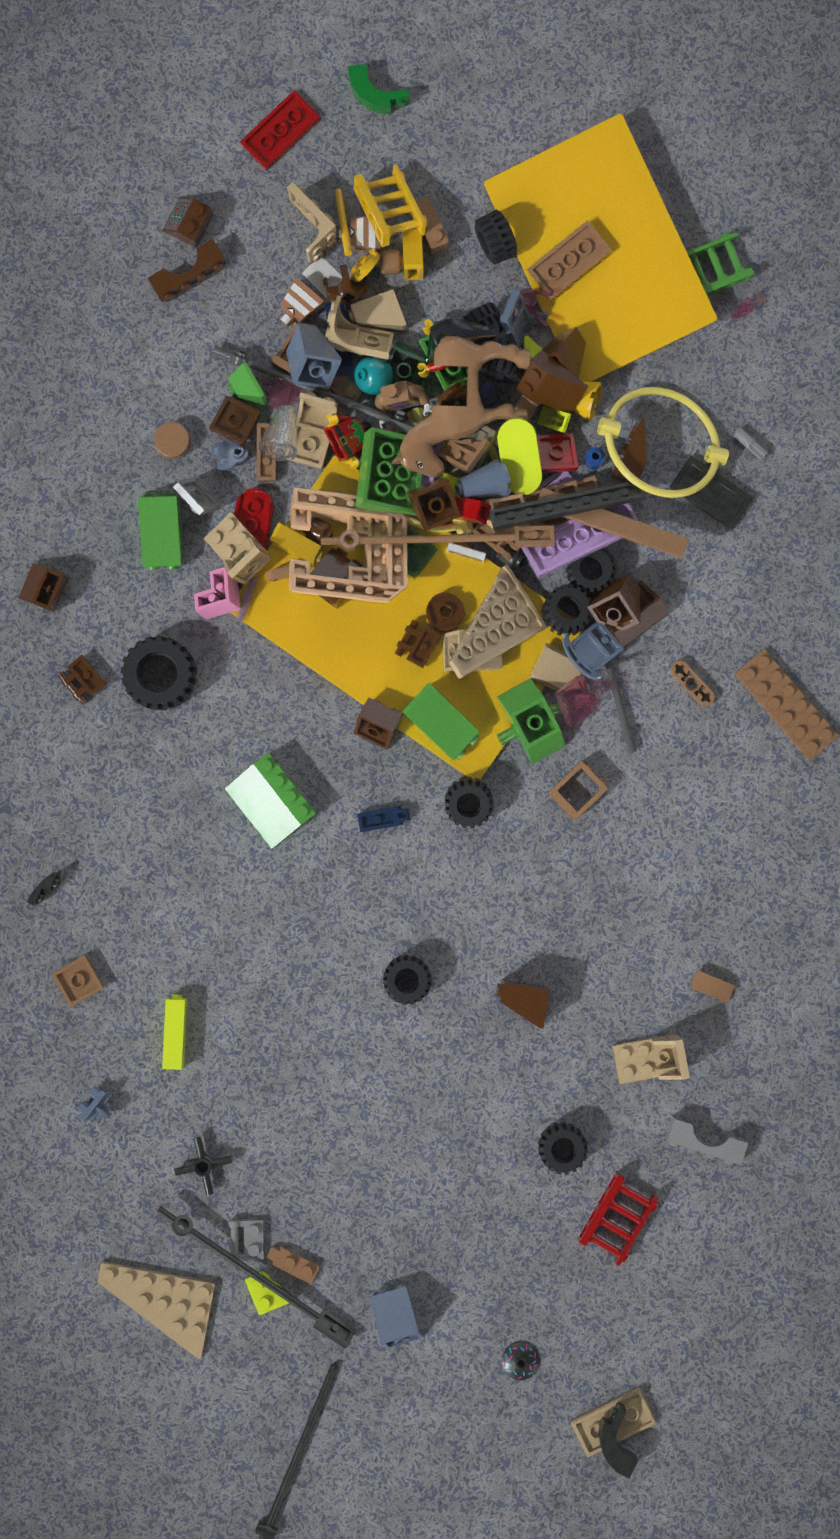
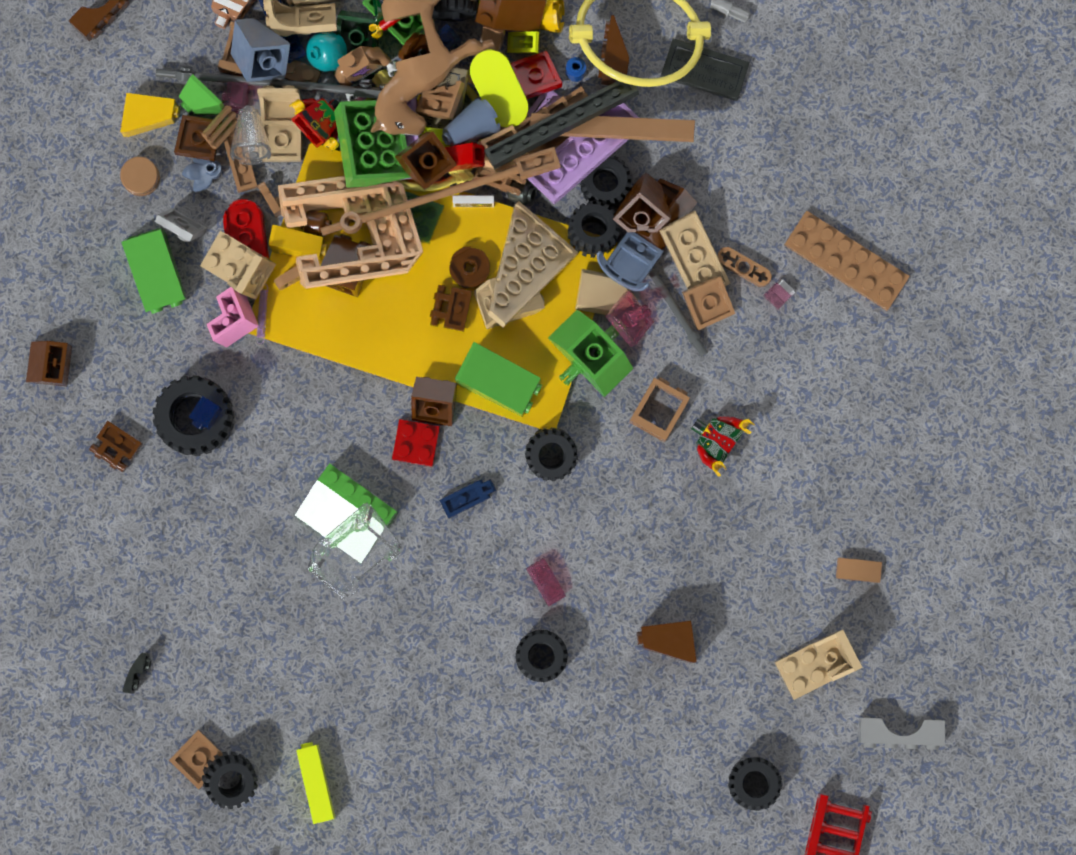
camera: 15 degrees left, 5 degrees down
(99, 1022) = (234, 795): none -> black tyre
(168, 677) = (205, 413): none -> clear blue brick
(195, 385) = (147, 113): none -> yellow slope
(259, 420) = (231, 120): none -> medium nougat tile
(266, 836) = (353, 551): none -> clear windscreen
(284, 498) = (274, 203): none -> medium nougat plate
(350, 755) = (415, 443): none -> red plate
(430, 914) = (545, 582): none -> clear pink slope
(622, 833) = (718, 439): none -> torso
(650, 661) = (692, 251): none -> tan tile
(650, 707) = (708, 302): none -> medium nougat plate
(716, 717) = (779, 294): none -> clear pink piece

